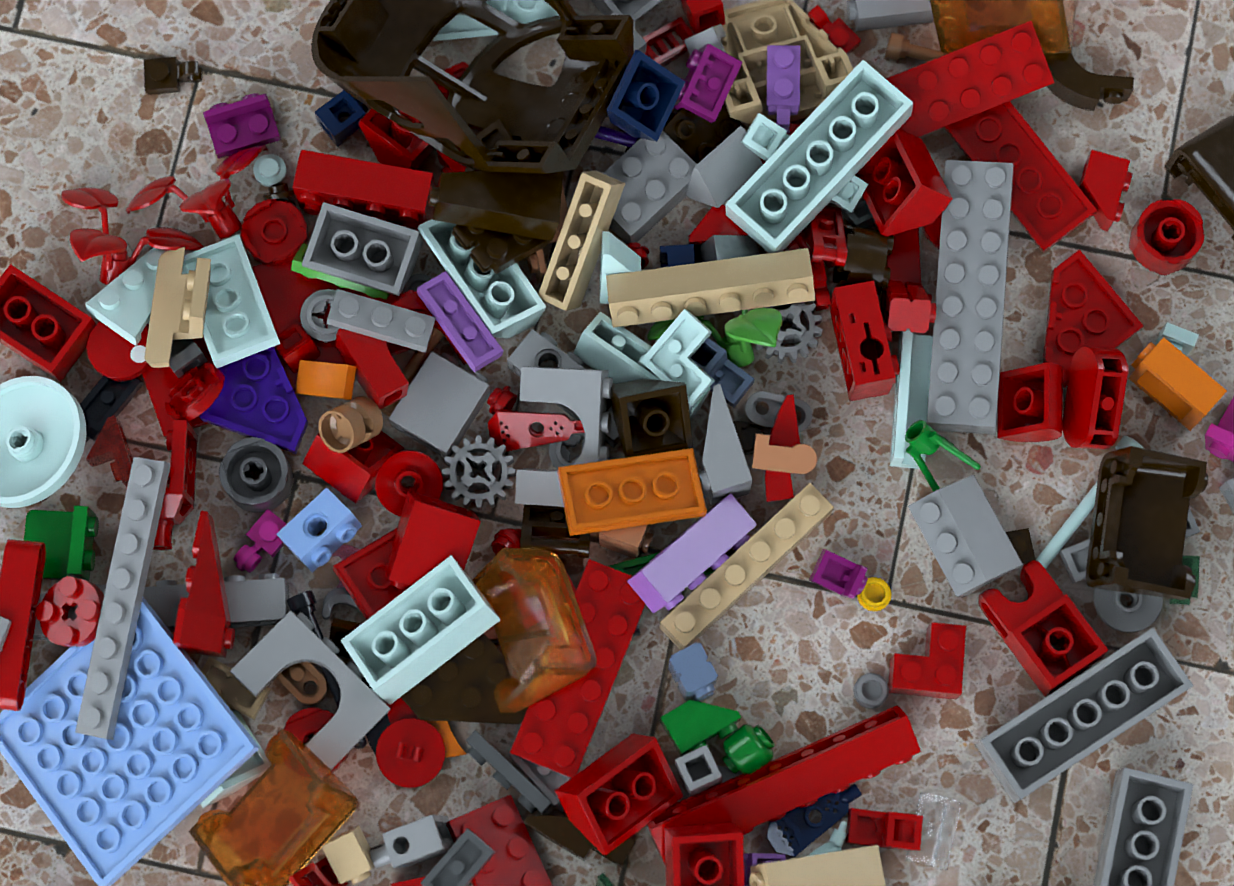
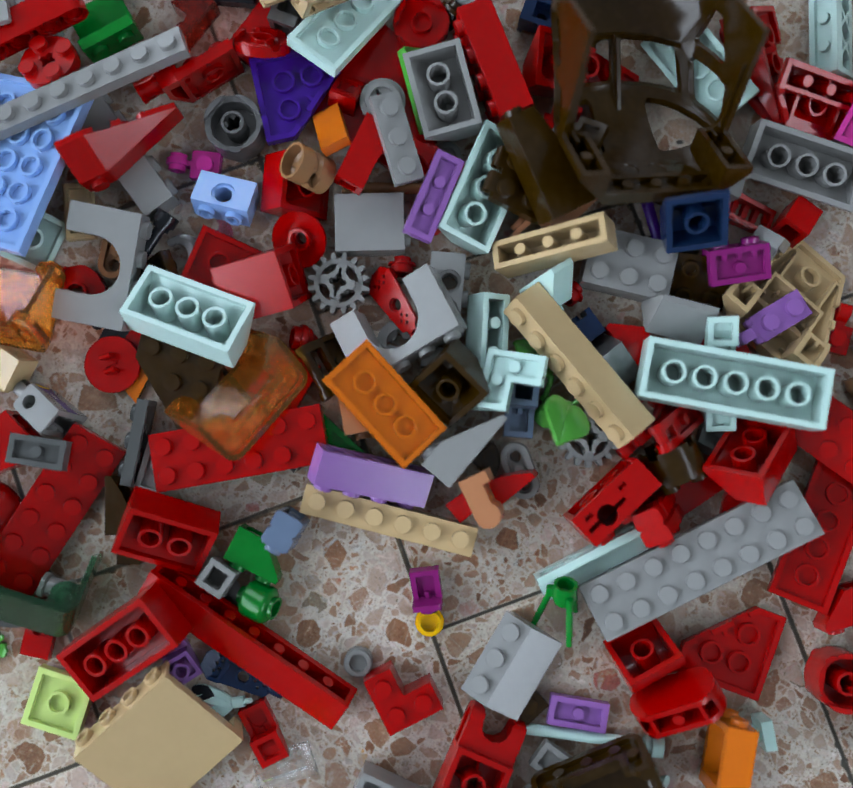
camera: 60 degrees right, 10 degrees up
(1052, 504) = (577, 712): none -> medium lavender plate

